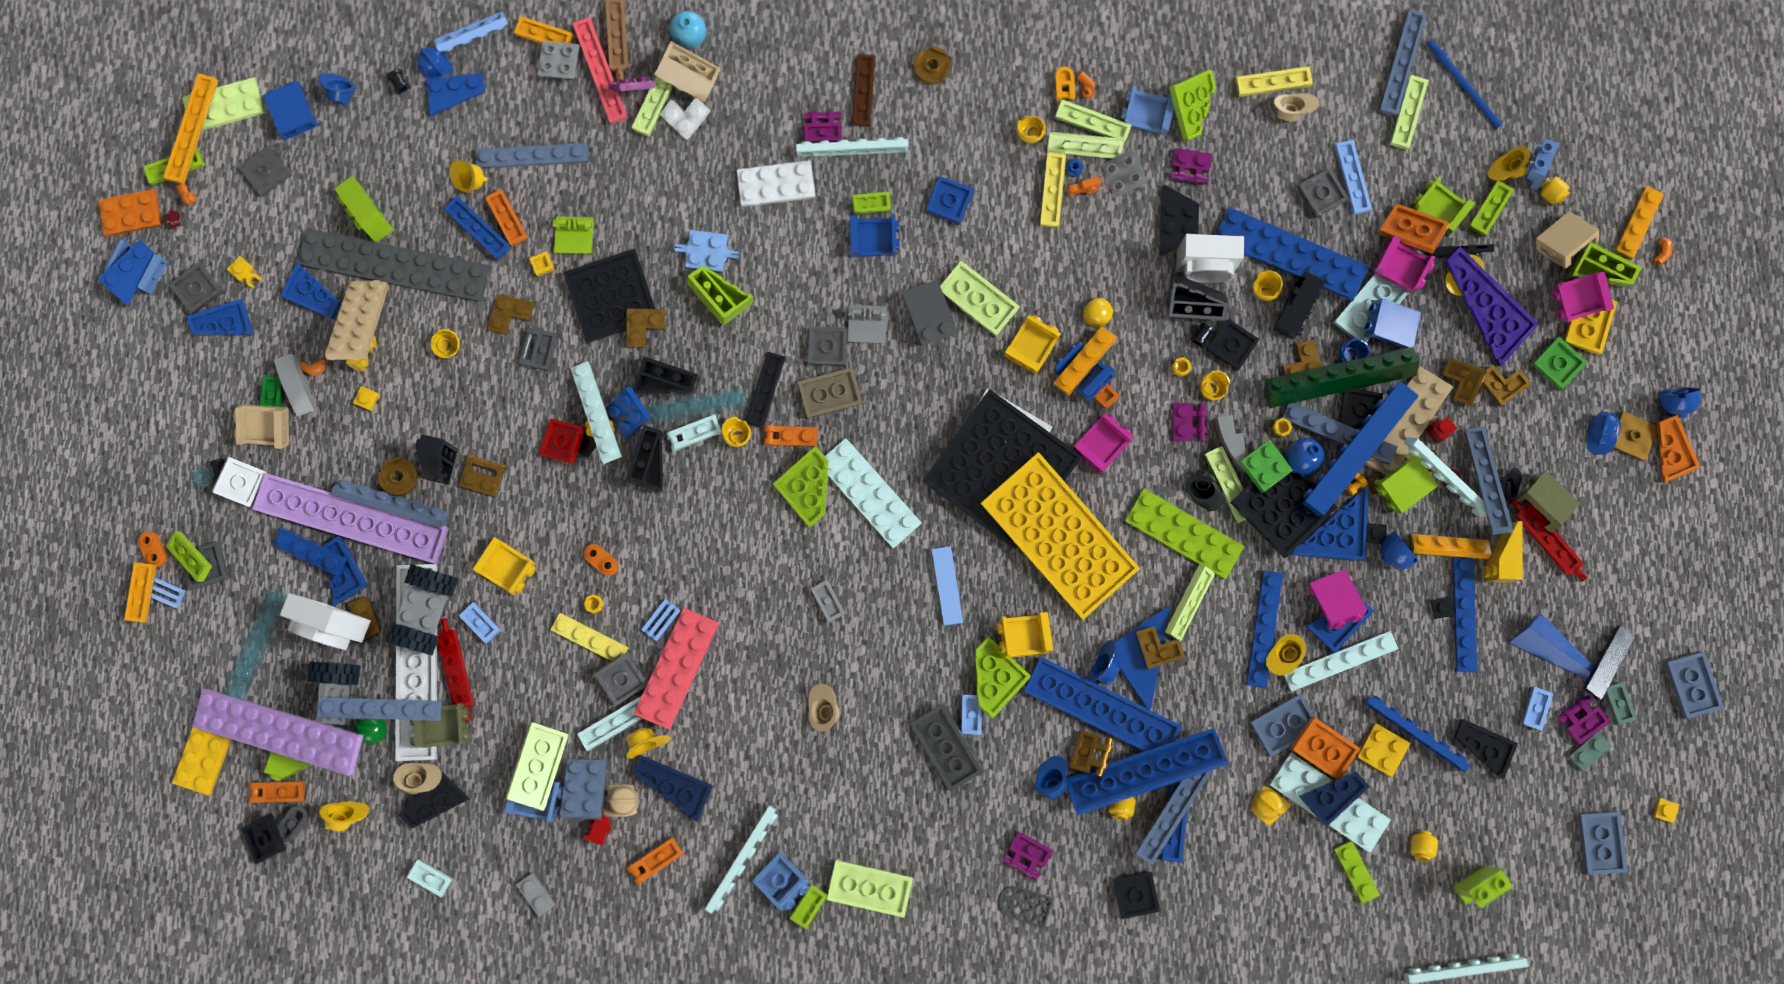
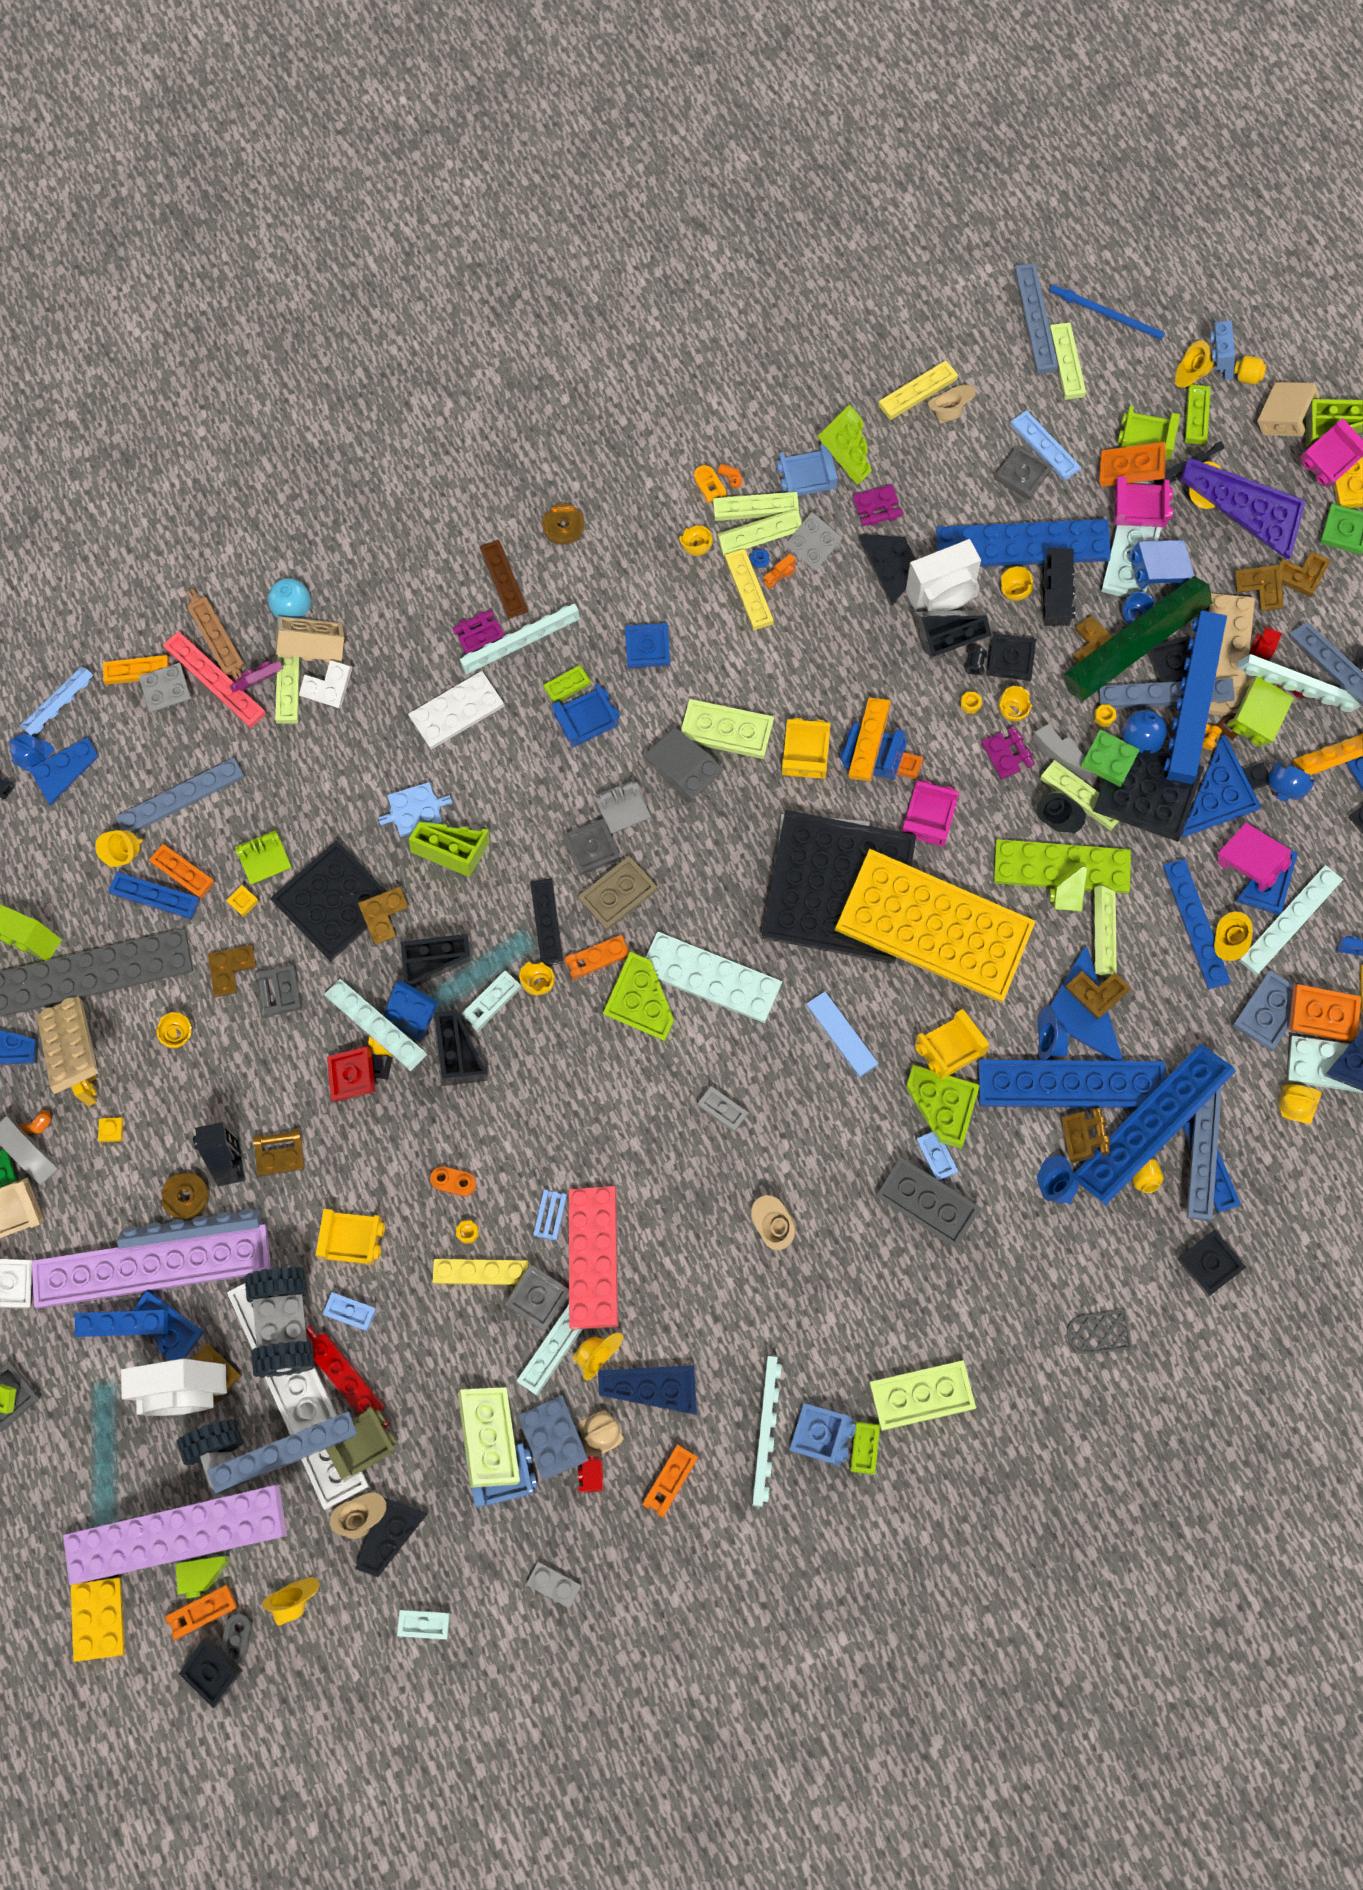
camera: 20 degrees left, 10 degrees down
(372, 730) = (288, 1485): green hair -> none
(1030, 849) = (1074, 1269): magenta plate -> none
(1097, 312) = (857, 688): yellow hair -> none
(1179, 556) = (1069, 889): none -> slope
(1639, 222) = (1348, 364): light orange plate -> none

